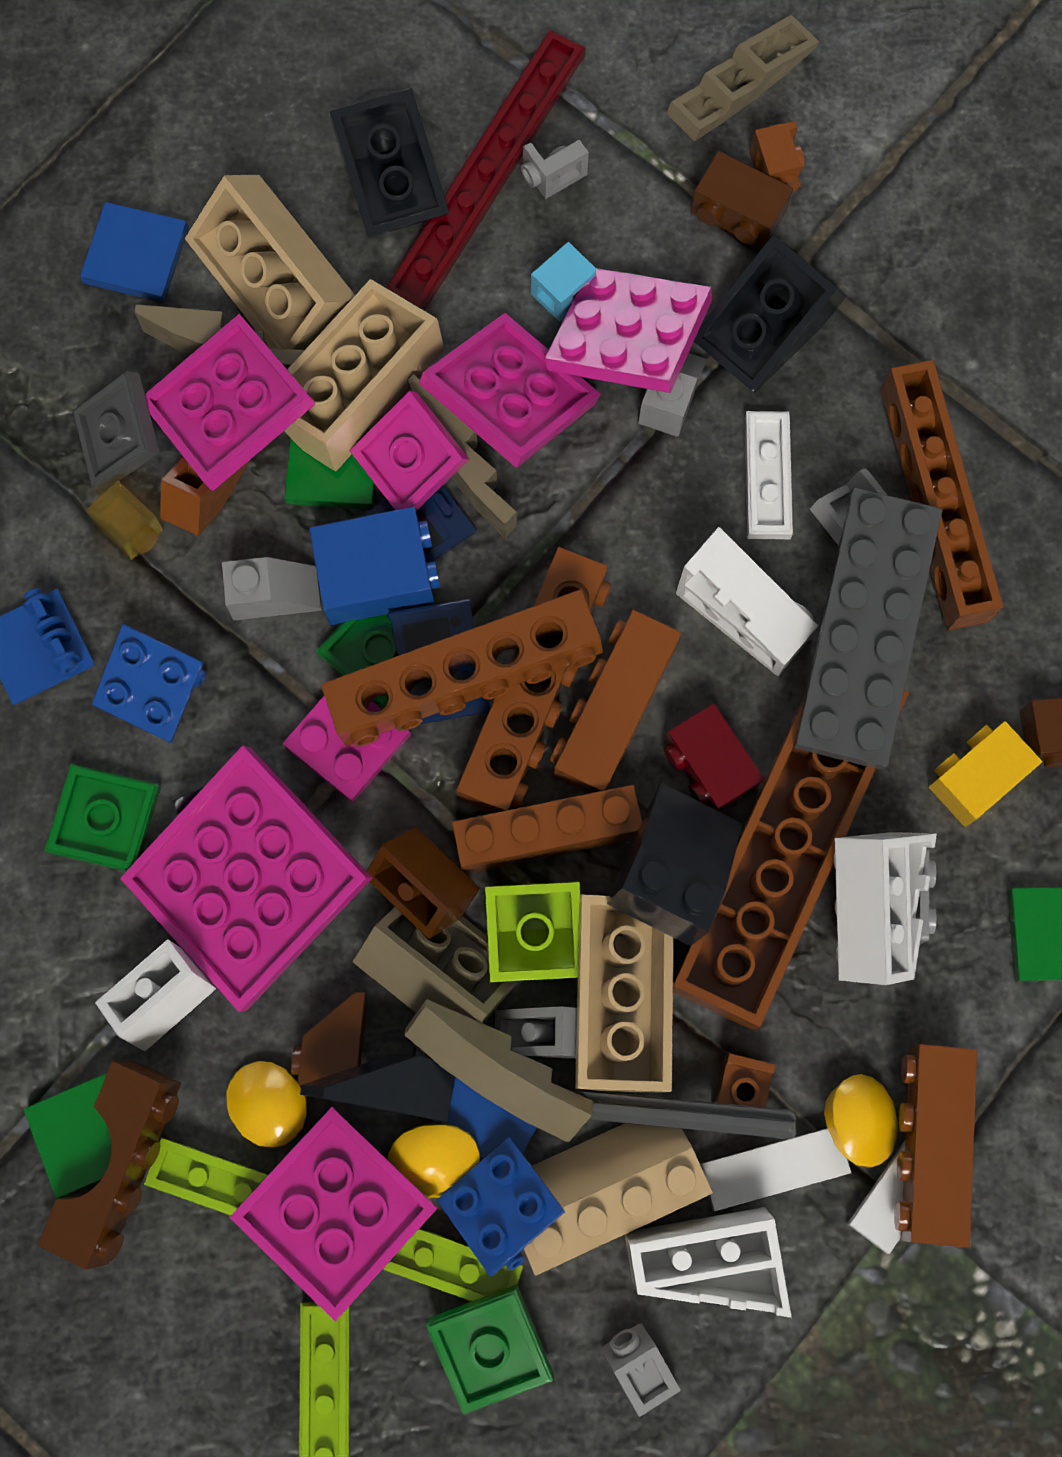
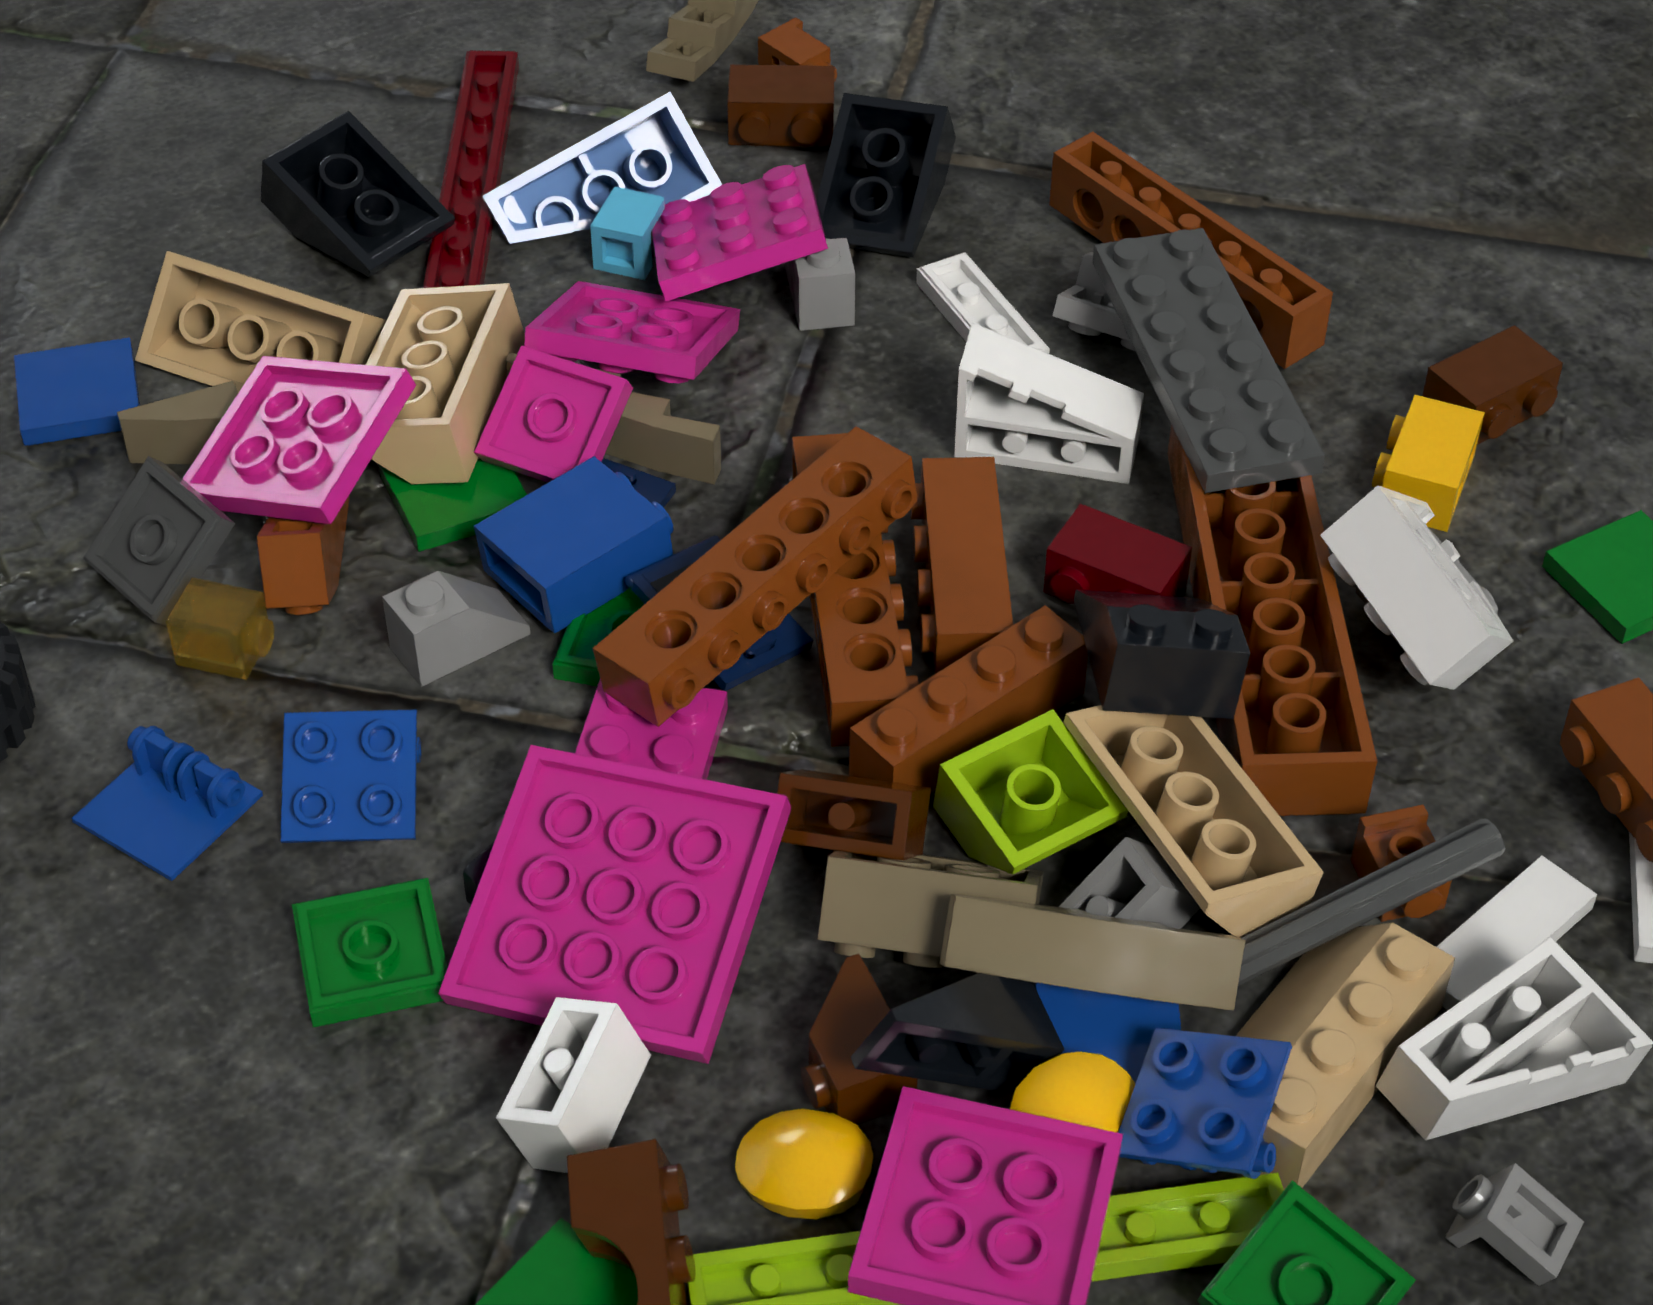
camera: 25 degrees left, 30 degrees down
(557, 171) = (531, 148): light grey bracket -> none
(599, 214) = (641, 152): none -> medium blue wedge
(862, 1120) = (1564, 833): yellow hat -> none

